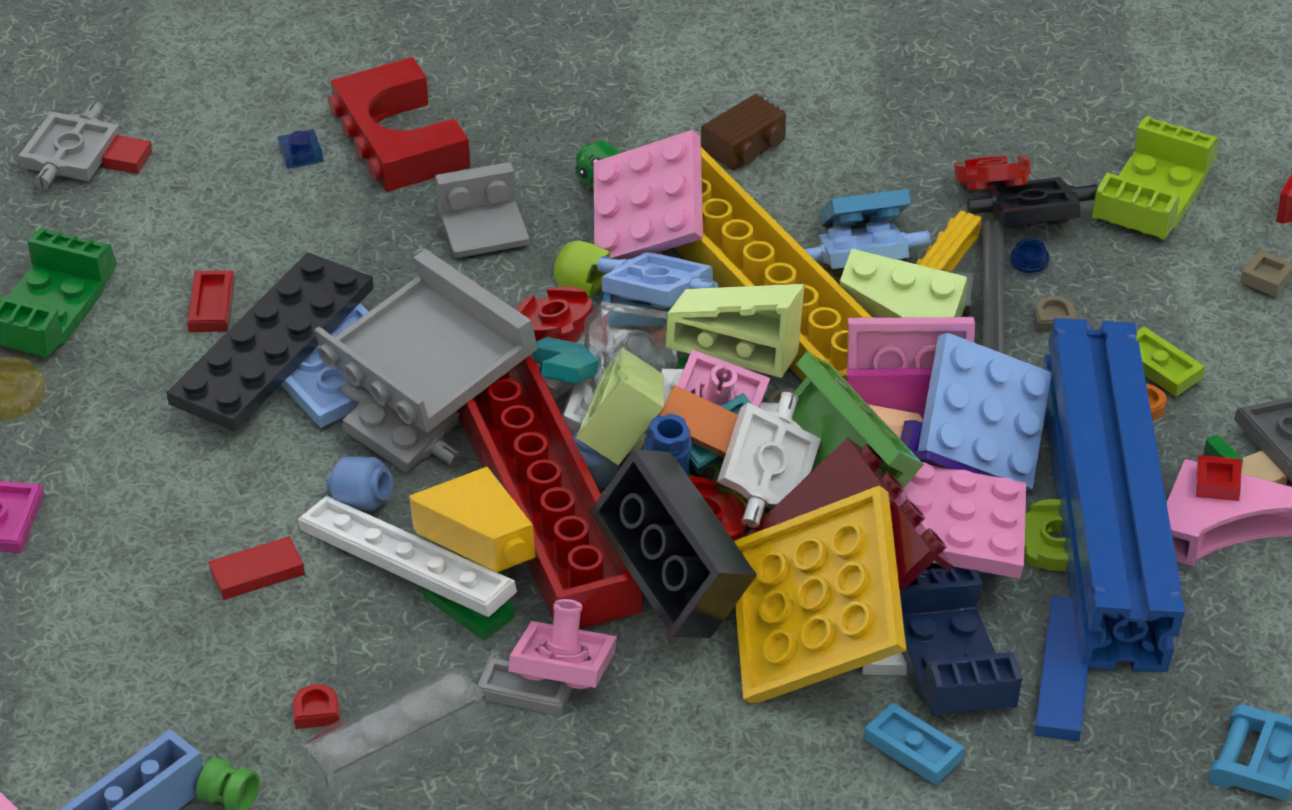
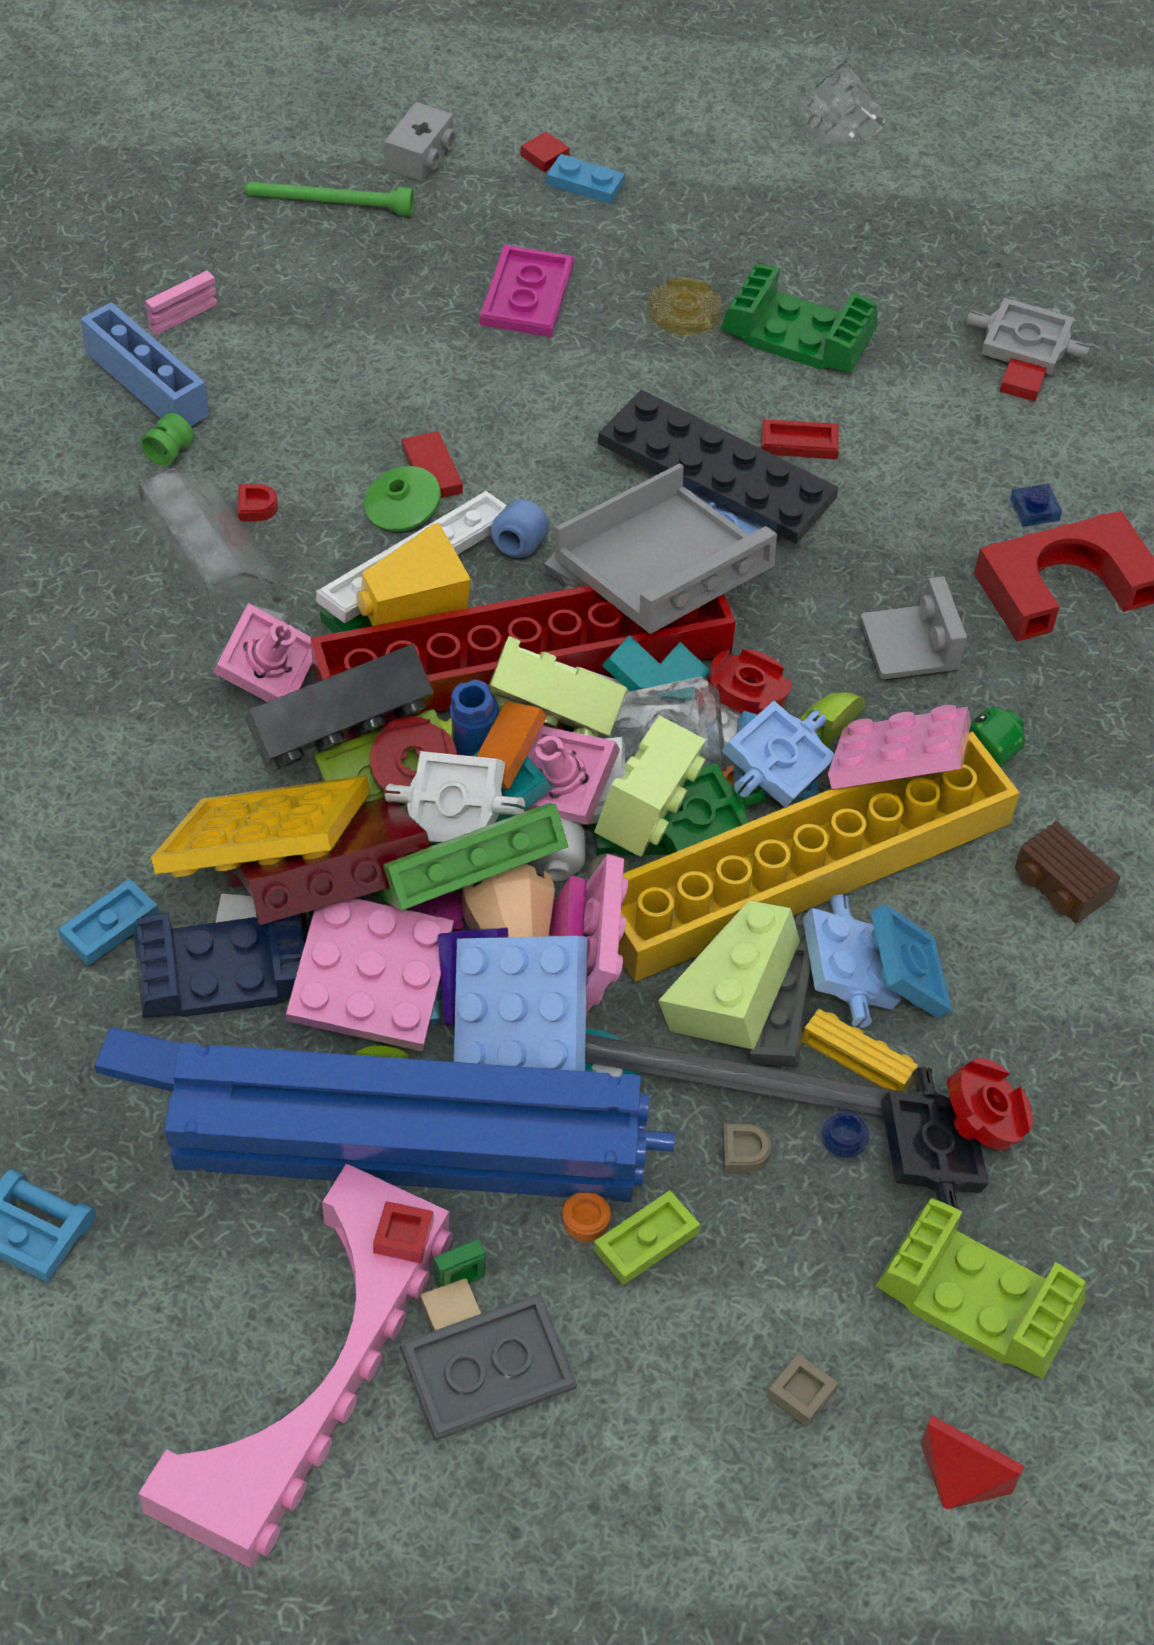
camera: 90 degrees right, 10 degrees up
(310, 599) = (402, 498): none -> bright green dish

